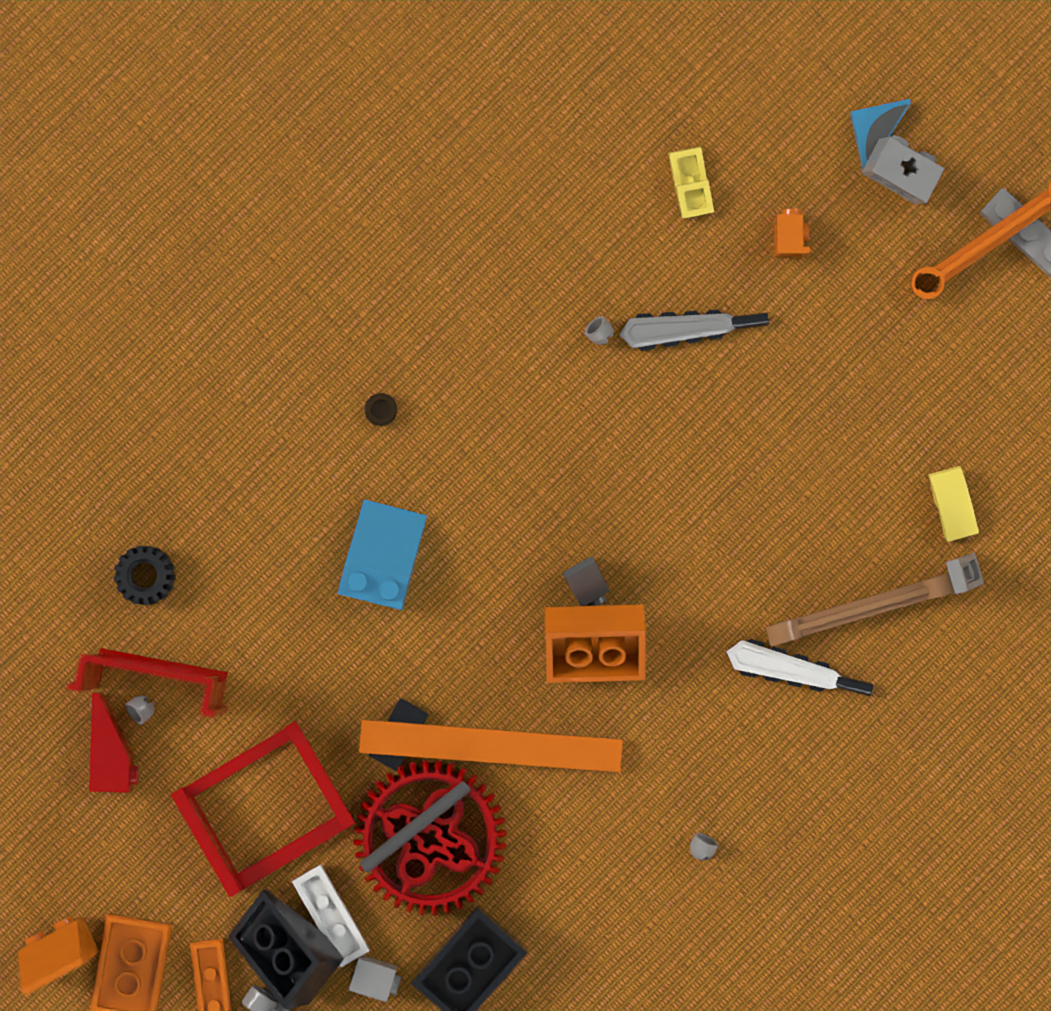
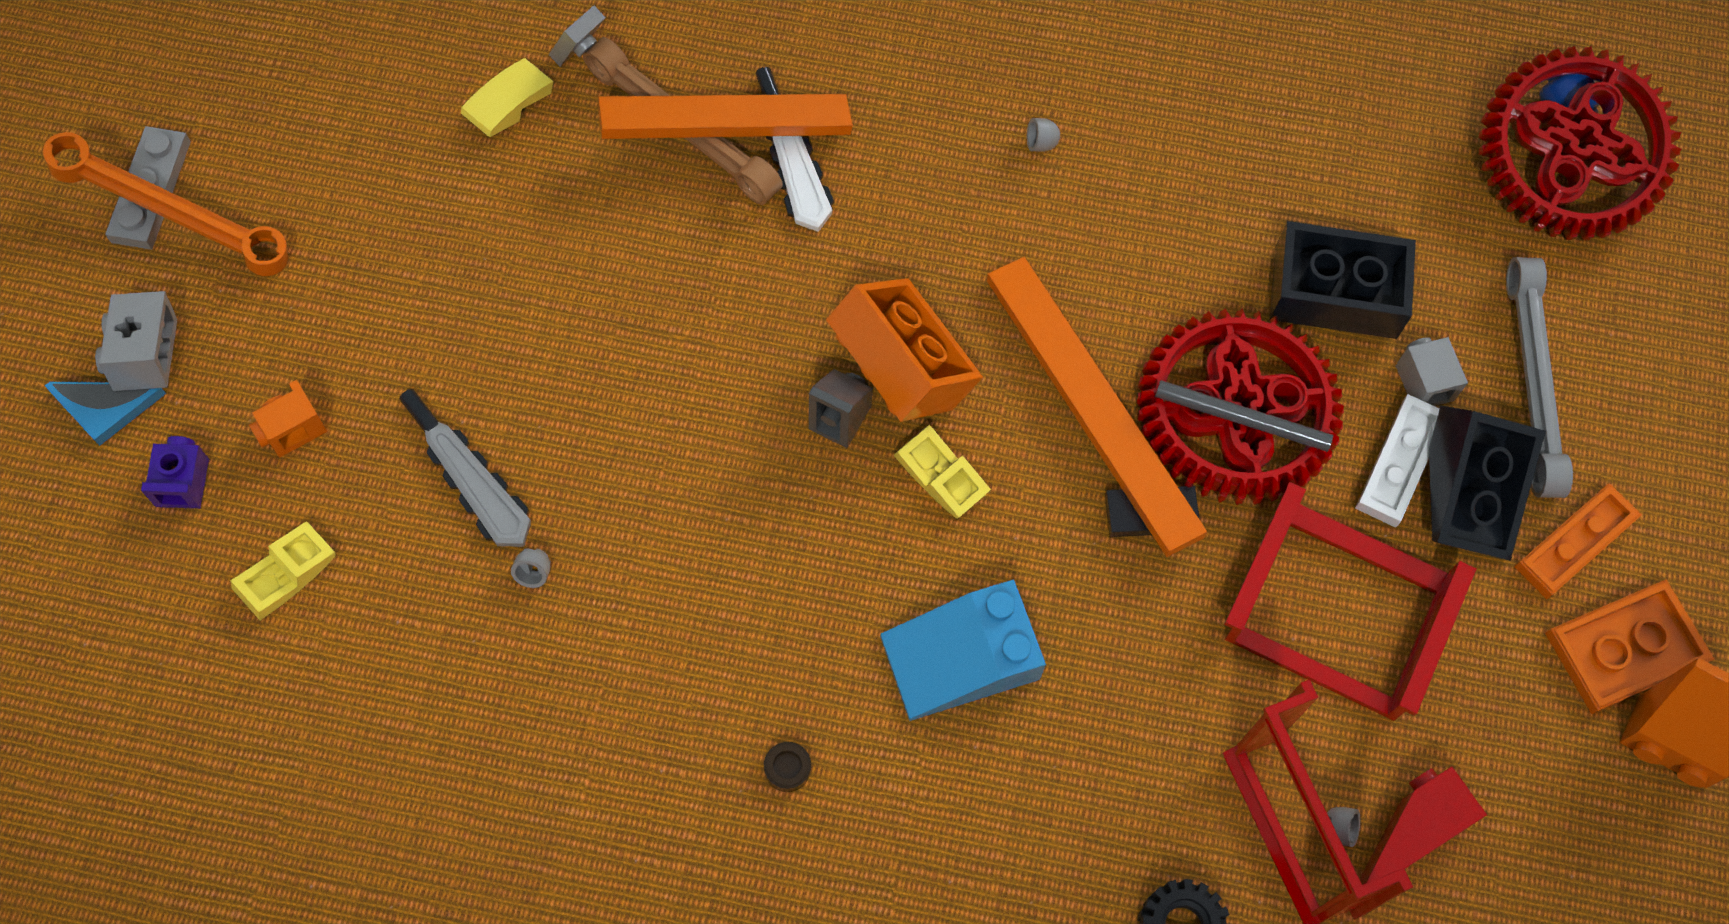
camera: 125 degrees left, 20 degrees down
(506, 620) = (941, 473): none -> light yellow slope
(783, 150) = (182, 485): none -> dark purple brick
(841, 636) = (723, 116): none -> orange tile

